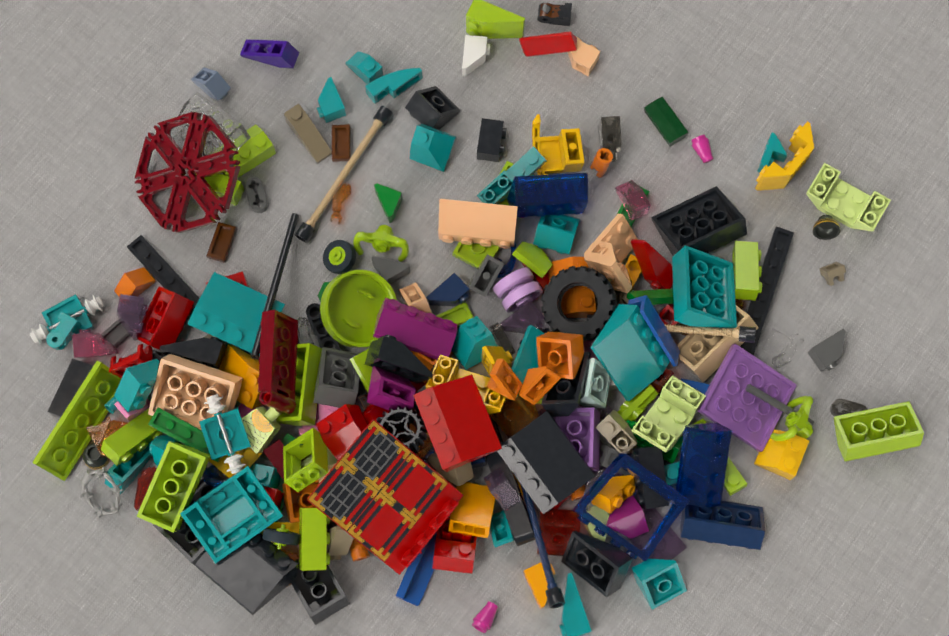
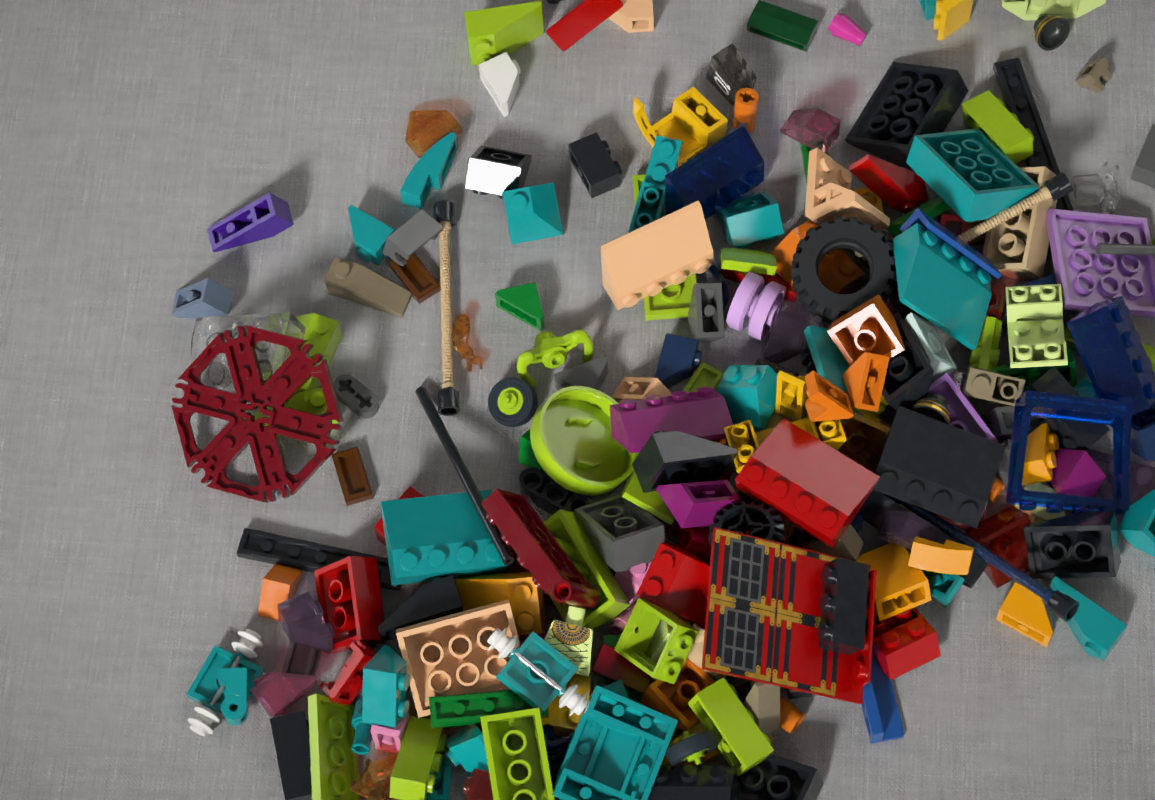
camera: 30 degrees left, 10 degrees down
(352, 118) = (411, 237): none -> dark grey hinge
(365, 67) = (381, 172): teal slope -> none
(411, 56) = (428, 127): none -> clear orange slope
(424, 512) = (843, 606): none -> black brick
(484, 619) = (993, 697): dark pink cone -> none
(509, 521) = (940, 558): none -> light orange slope
(568, 424) = (934, 407): none -> pearl dark grey piece

